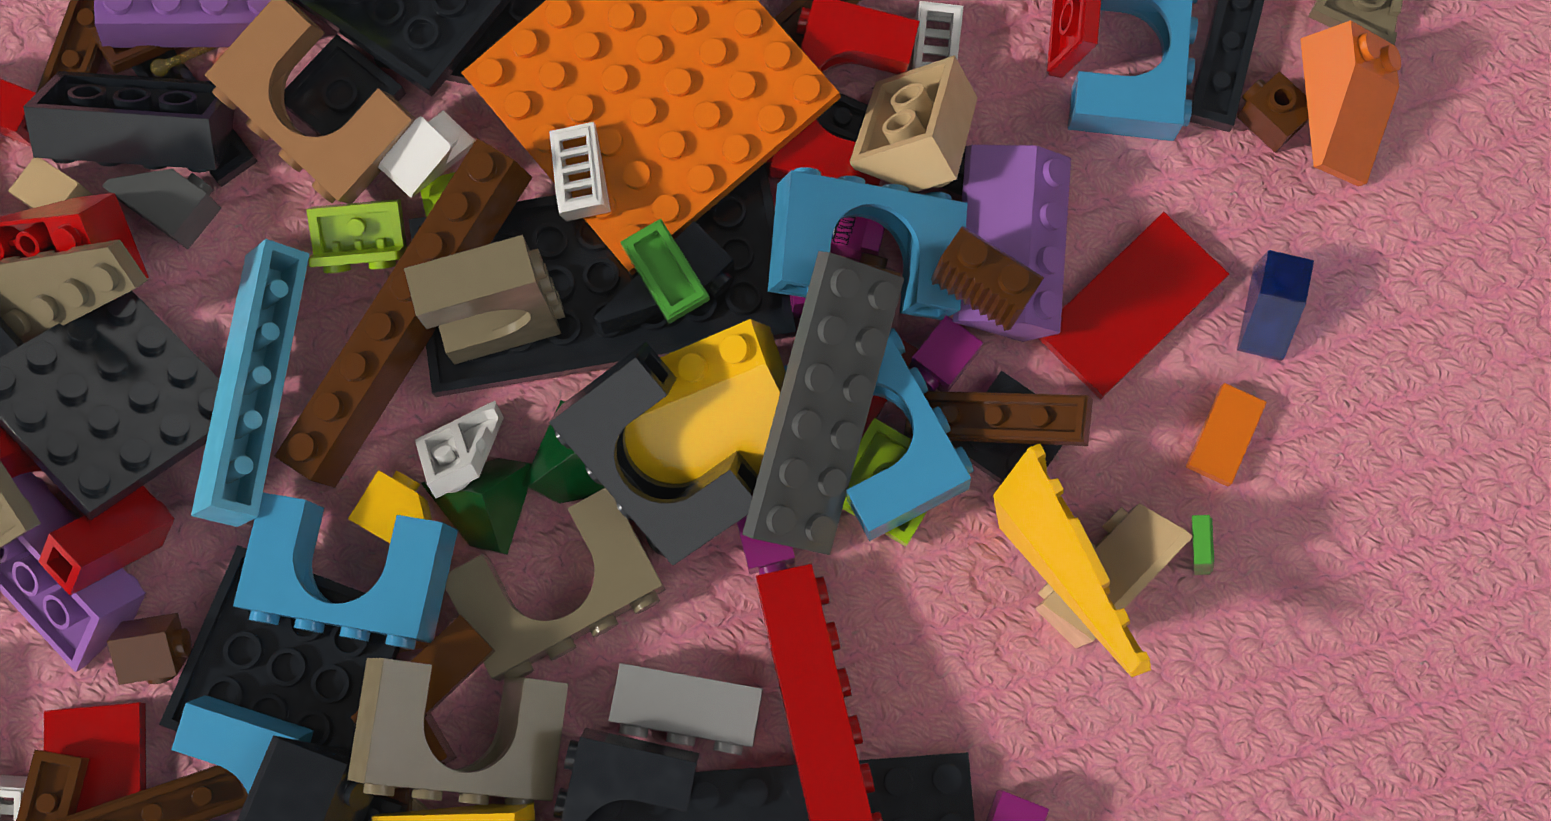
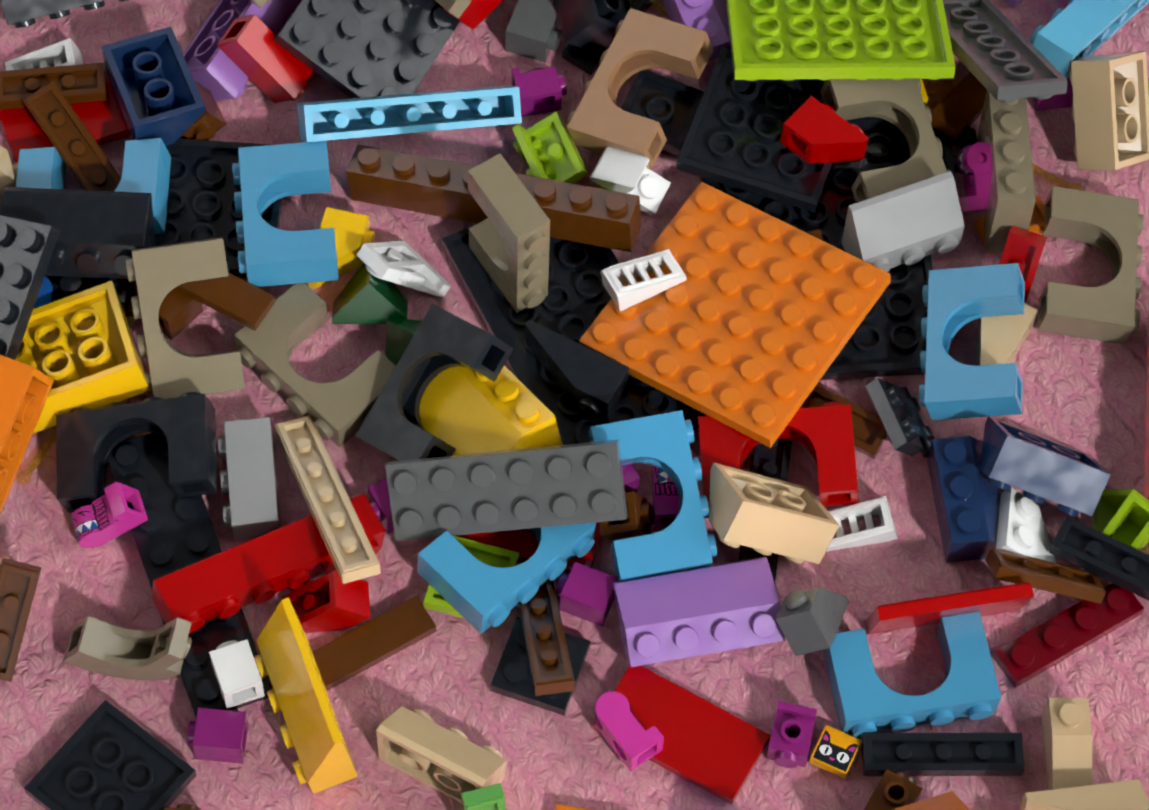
camera: 70 degrees right, 15 degrees down
(99, 693) = (153, 85): none -> dark blue slope
(262, 217) = (539, 90): none -> magenta brick
(665, 271) = (580, 356): bright green tile -> none
(758, 621) = (327, 500): none -> tan tile
(879, 660) = (329, 604): none -> red slope
(938, 637) = (373, 642): none -> reddish brown tile
(957, 790) = (236, 673): none -> white brick
(986, 278) = (645, 579): reddish brown brick -> none
(1014, 716) = (303, 702): none -> yellow slope
(1057, 120) = (811, 619): none -> dark grey slope
(1057, 546) = (432, 706): yellow wedge -> none
(1121, 368) = (624, 731): none -> dark pink leg
(1158, 195) = (793, 720): none -> magenta brick
(1195, 151) = (835, 751): none -> tile

